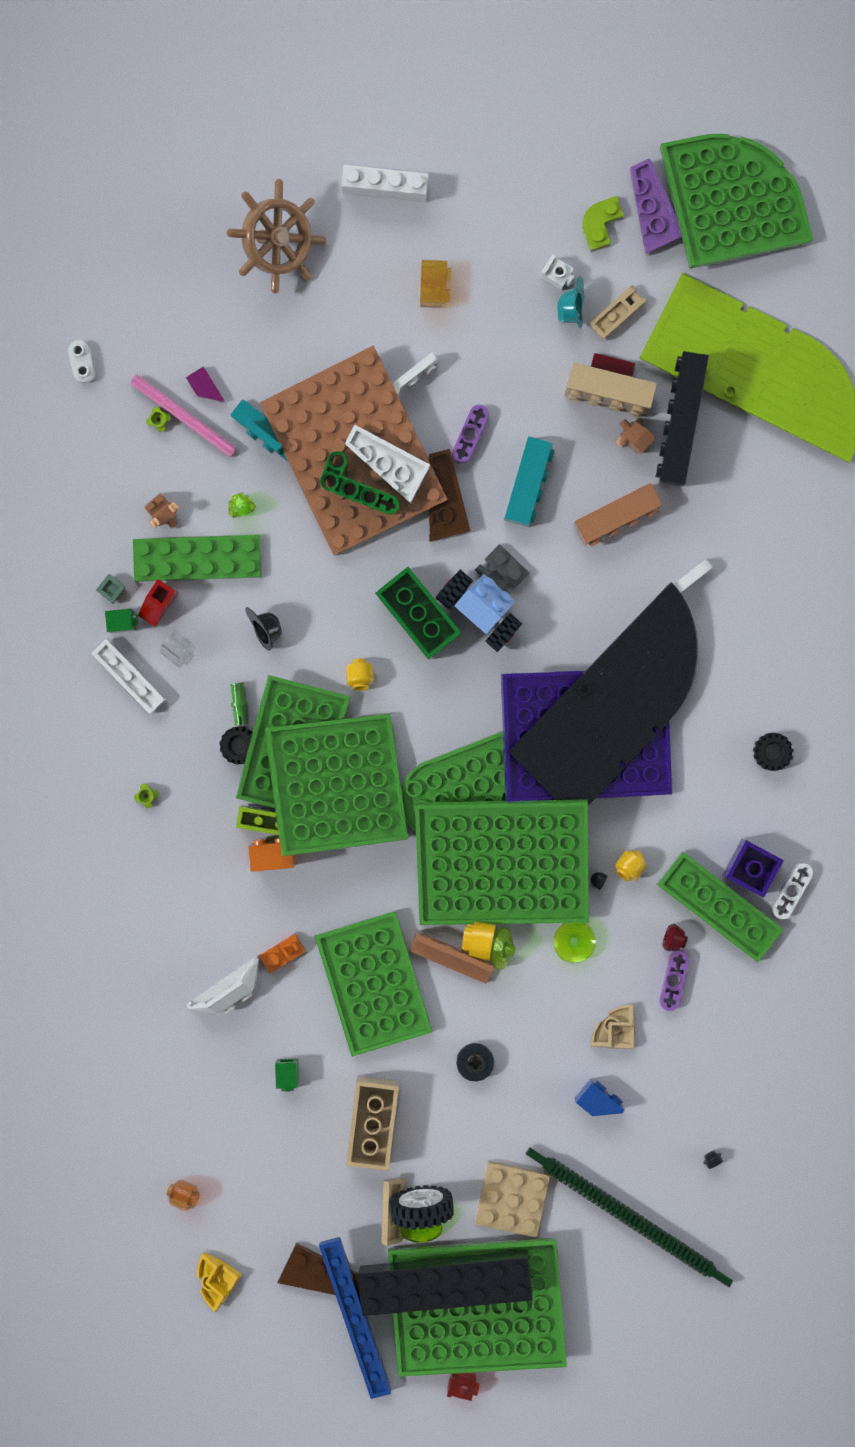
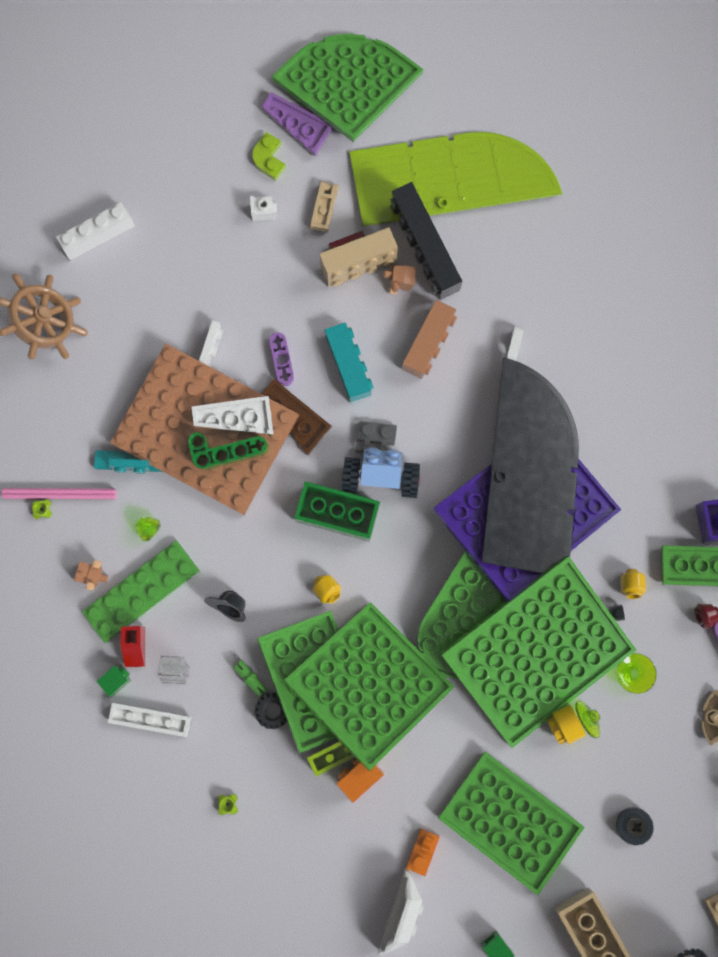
camera: 35 degrees left, 10 degrees down
(111, 588) = (90, 661): sand green plate -> none
(203, 385) = (59, 461): magenta tile -> none
(433, 284) = (179, 274): clear yellow brick -> none
(451, 957) = (554, 755): nougat fence -> none
(571, 304) = (288, 223): teal piece -> none
(782, 742) = (663, 436): black tyre -> none

